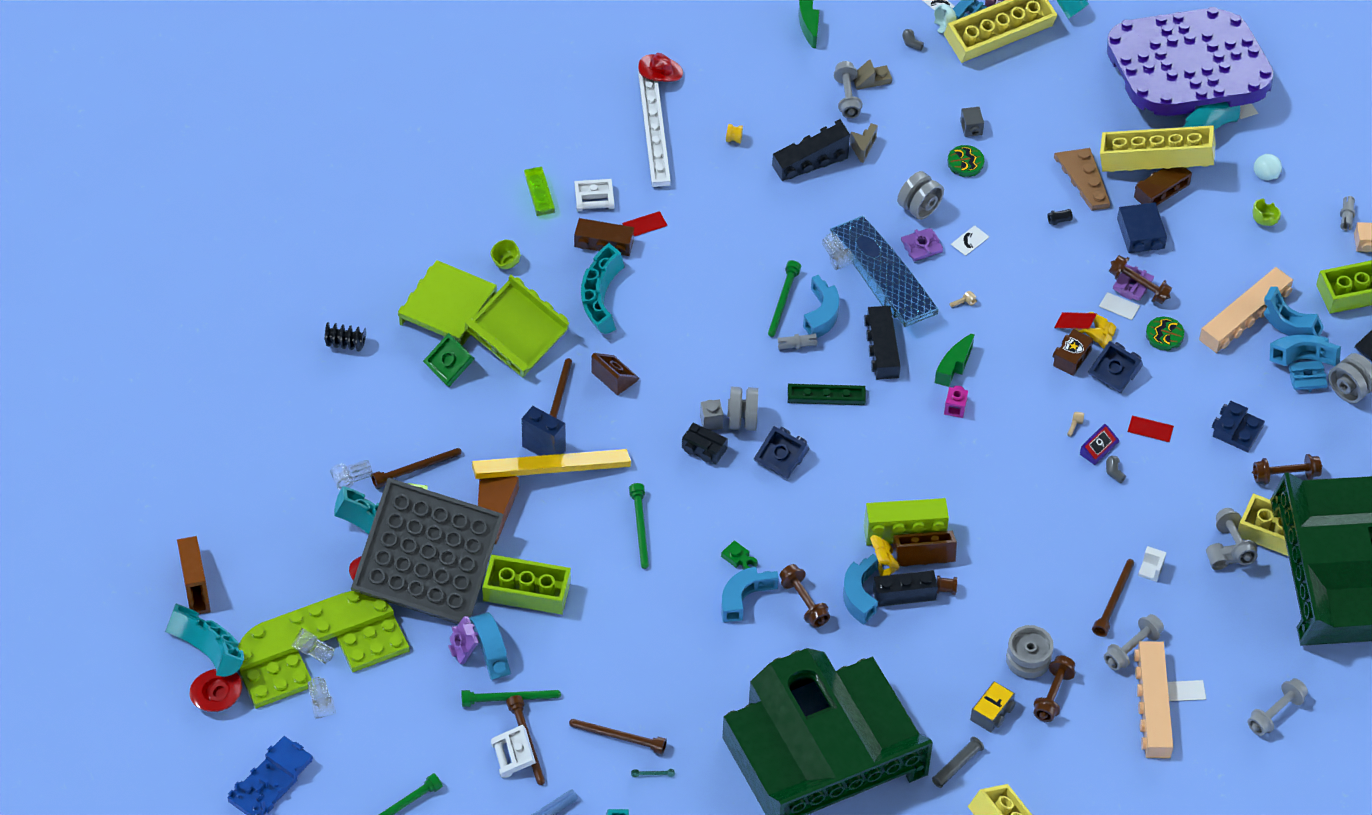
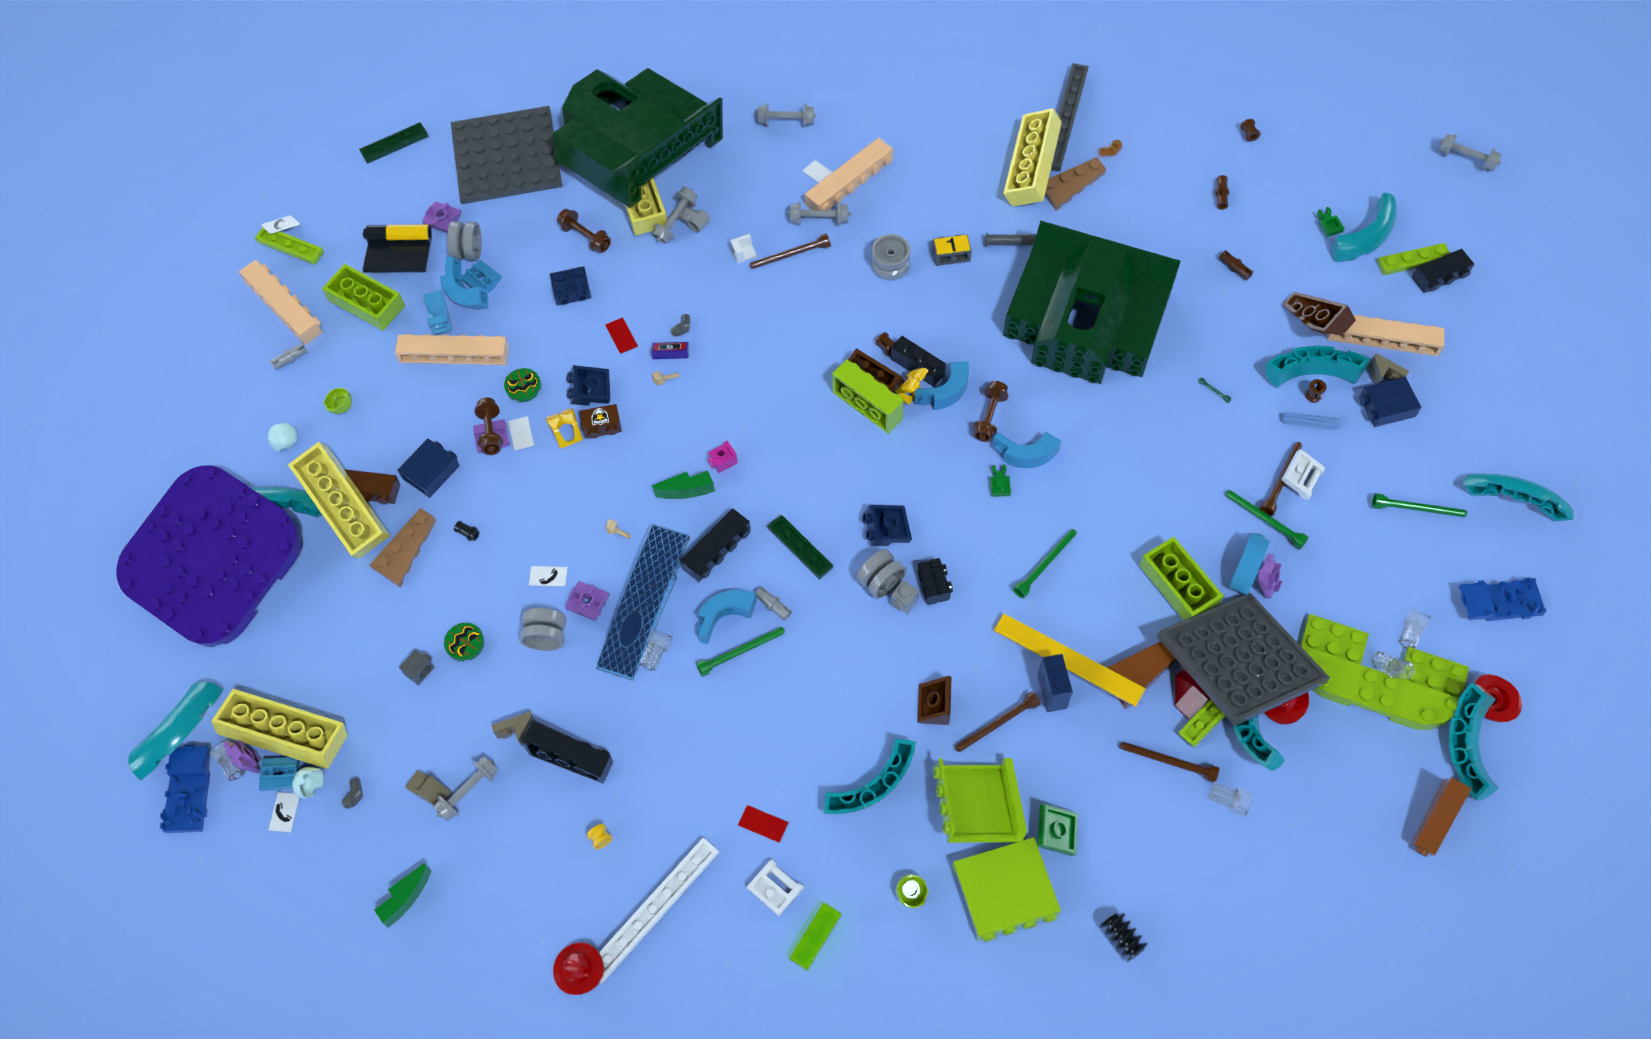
camera: 130 degrees left, 10 degrees up
(597, 234) = (814, 834): reddish brown brick -> none
(657, 744) = (1195, 402): reddish brown piece -> none
(1063, 669) = (922, 220): reddish brown piece -> none
(1075, 320) = (569, 439): red sticker -> none

